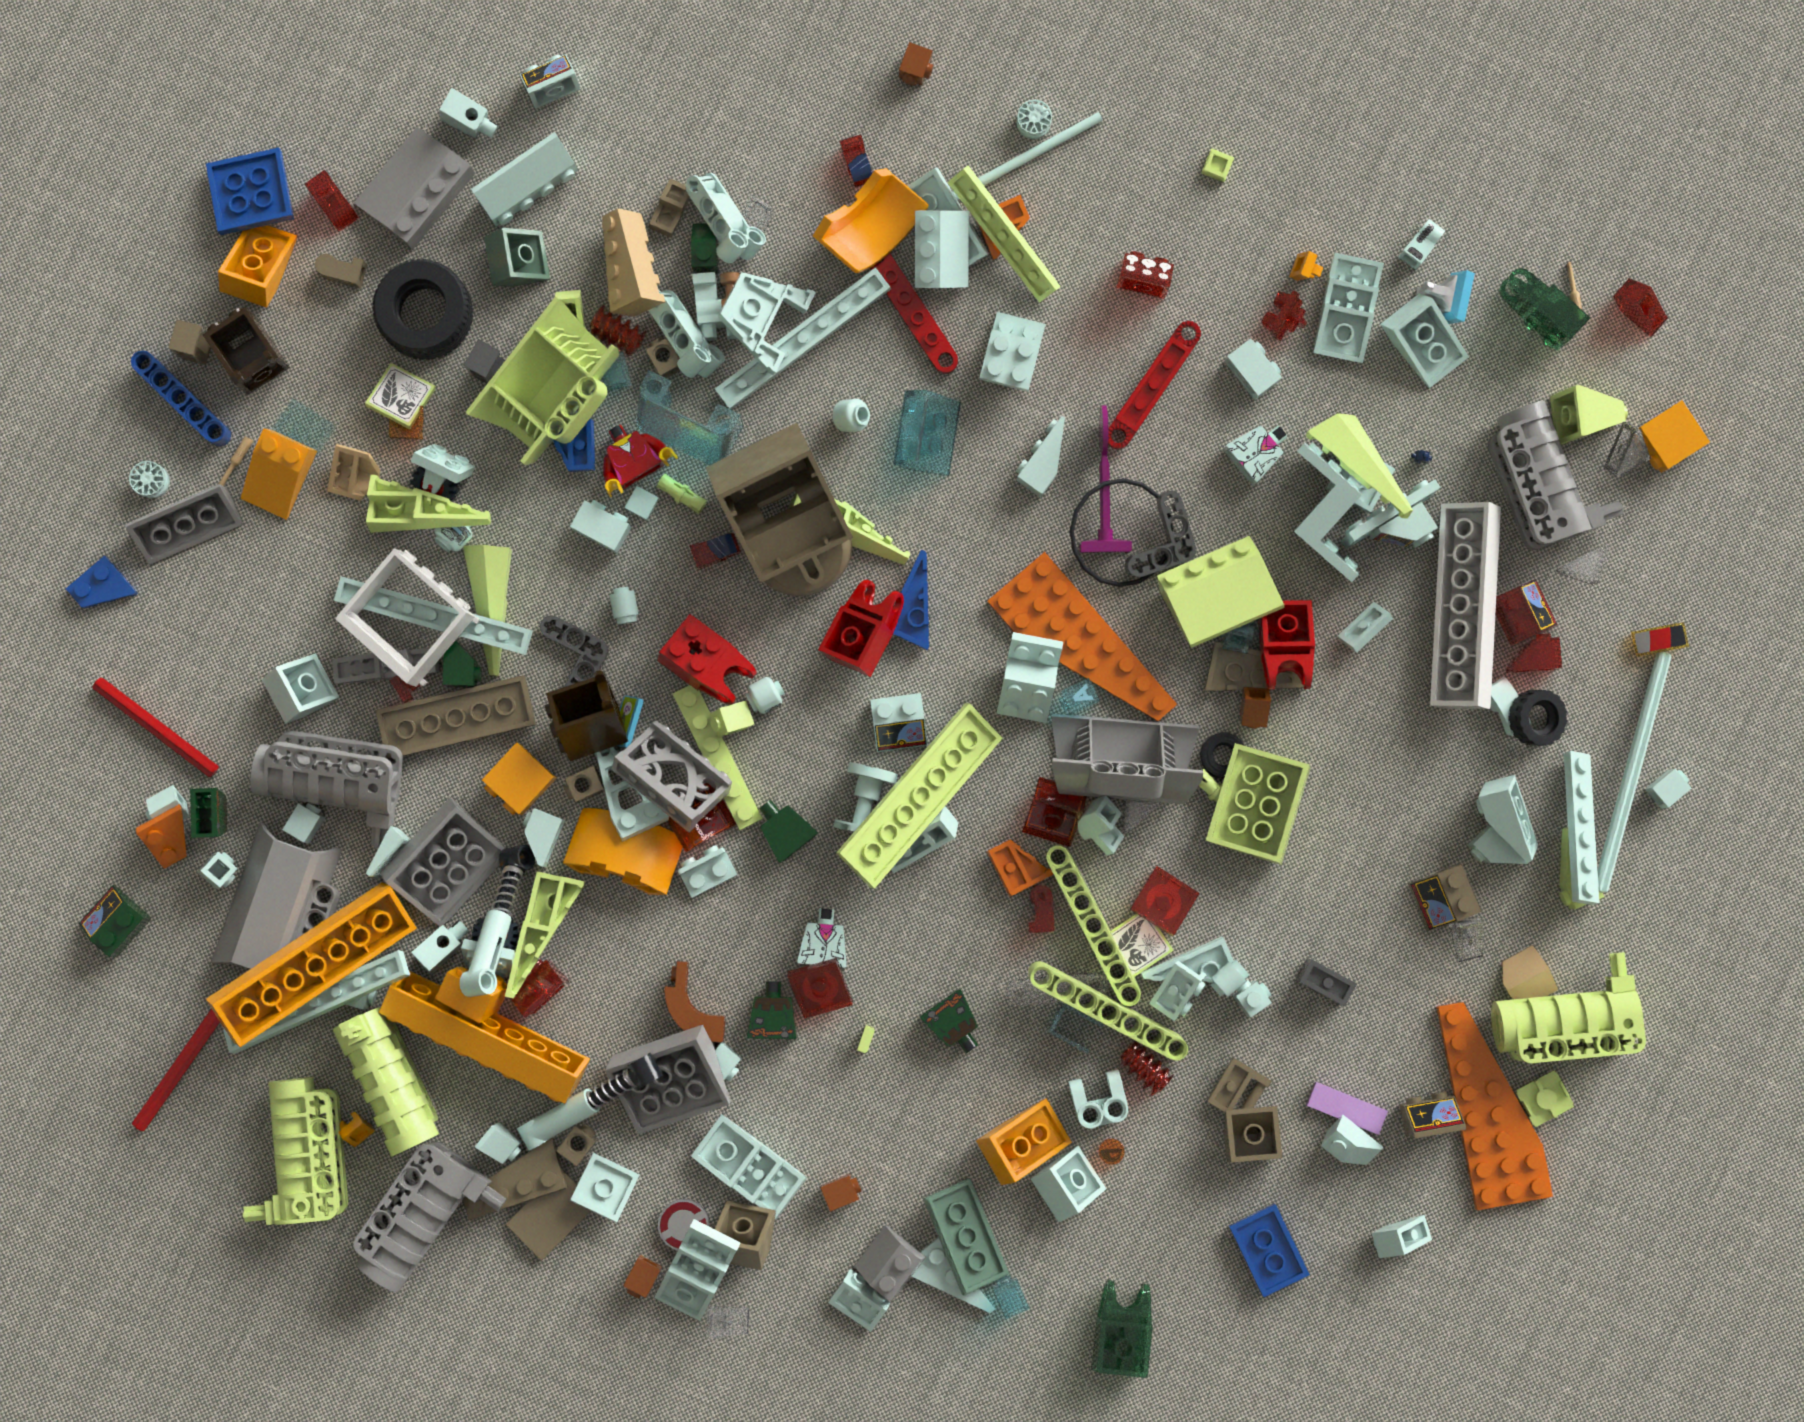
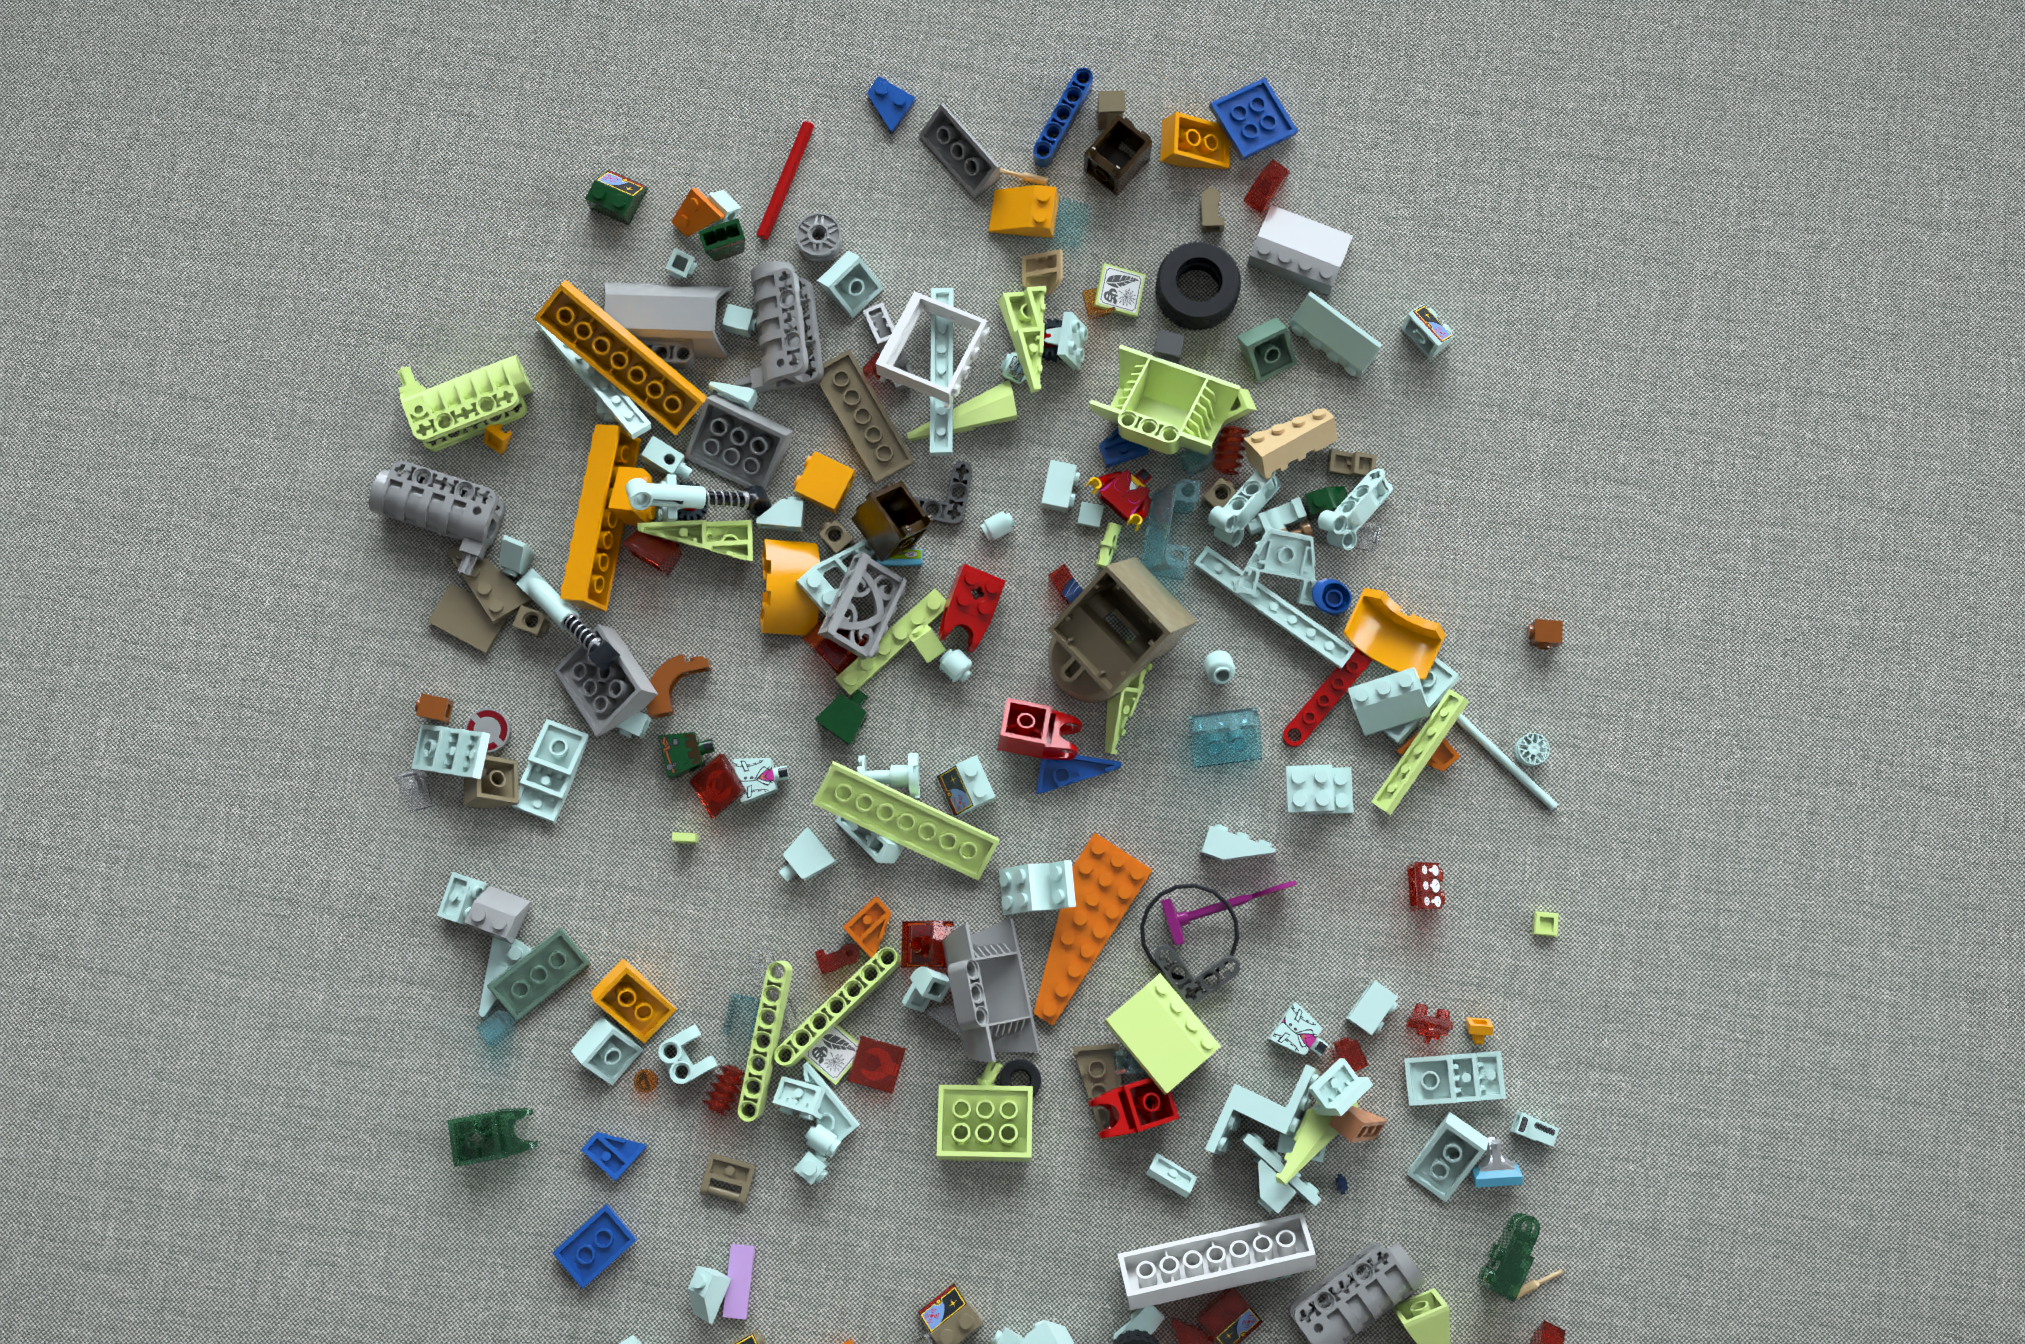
camera: 80 degrees right, 5 degrees down
(149, 479) = (987, 114): light aqua wheel -> none
(176, 1071) = (502, 280): red axle -> none
(219, 708) = (814, 225): none -> light grey wheel
(388, 1080) = (543, 451): yellowish green piece -> none
(457, 110) = (1375, 263): light aqua torso -> none
(460, 667) = (906, 406): dark green slope -> none
(604, 1187) = (501, 654): light aqua plate -> none
(707, 871) = (792, 662): light aqua bracket -> none
(810, 274) = (1331, 597): none -> blue hat
(841, 1191) = (549, 854): dark orange brick -> none
(856, 160) = (1445, 606): leg -> none
(925, 914) = (806, 857): none -> light aqua torso
(952, 1021) = (720, 908): torso -> none
(1078, 697) = (1033, 936): clear light blue brick -> none
(1153, 384) = (1330, 923): red plate -> none
(1178, 1206) = (612, 1153): none -> blue wing
(1252, 1134) = (691, 1201): dark tan slope -> none
(1255, 707) = (1069, 1095): dark orange brick -> none
(1296, 407) = (1350, 1051): none -> clear red brick
(1325, 982) = (843, 1229): dark grey panel -> none
(1332, 426) = (1338, 1089): none -> light aqua bracket
(1368, 420) = (1358, 1124): none -> nougat slope

